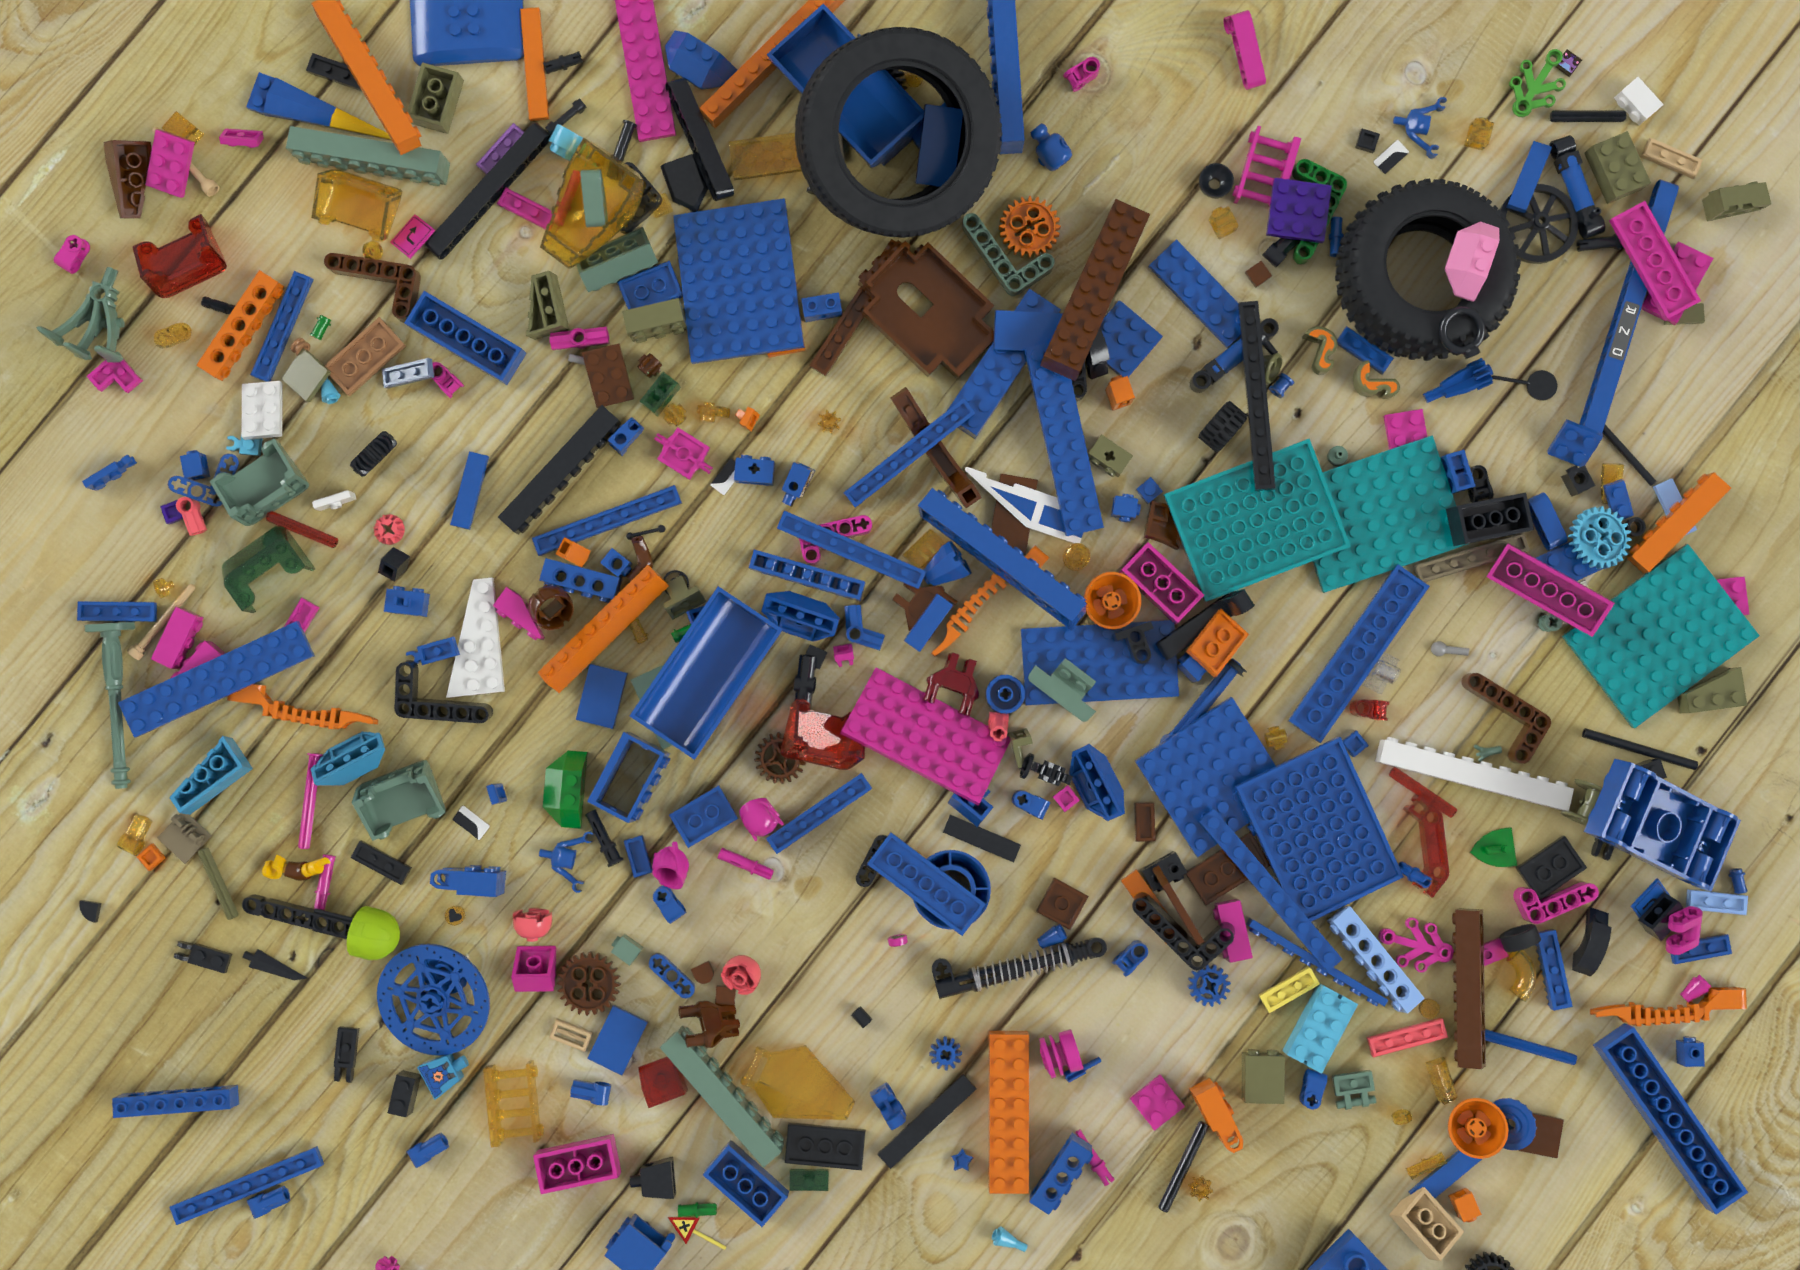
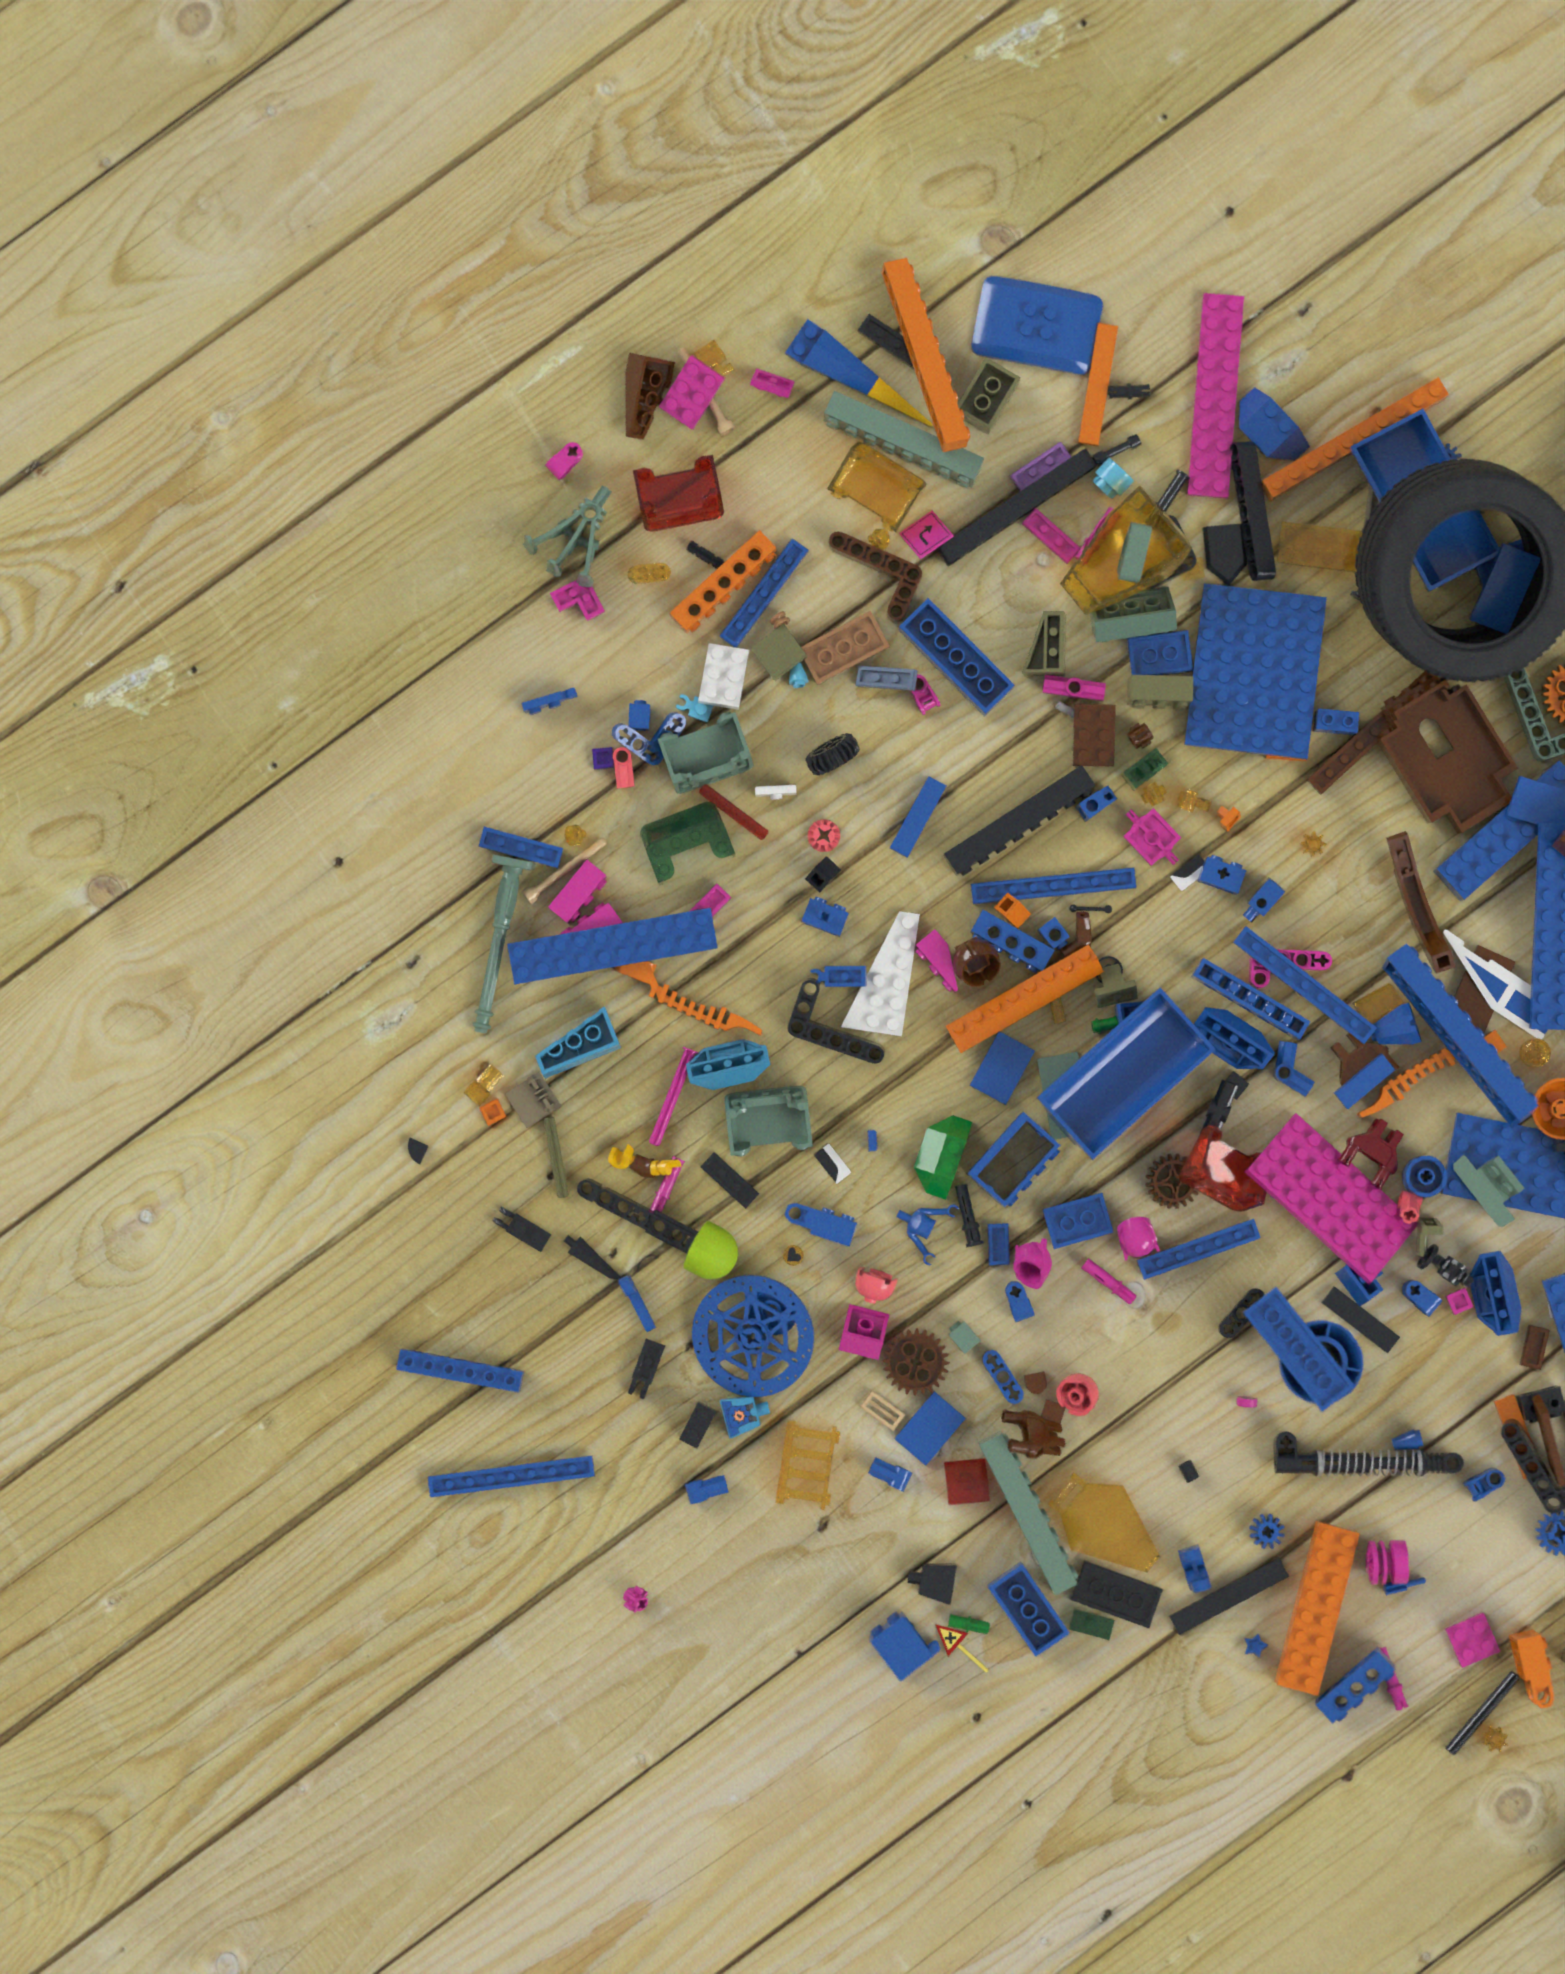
camera: 15 degrees right, 0 degrees up
(264, 1203) = (524, 1499): blue piece -> none
(312, 985) = (631, 1291): none -> blue beam
(320, 327) = (805, 604): green pin -> none
(571, 1175) = (866, 1555): dark pink brick -> none
(843, 653) = (1266, 1089): dark pink tile -> none
(909, 452) = (1390, 899): blue plate -> none
(1003, 1238) = (1277, 1736): medium azure cone -> none
(1062, 903) = (1426, 1409): reddish brown tile -> none

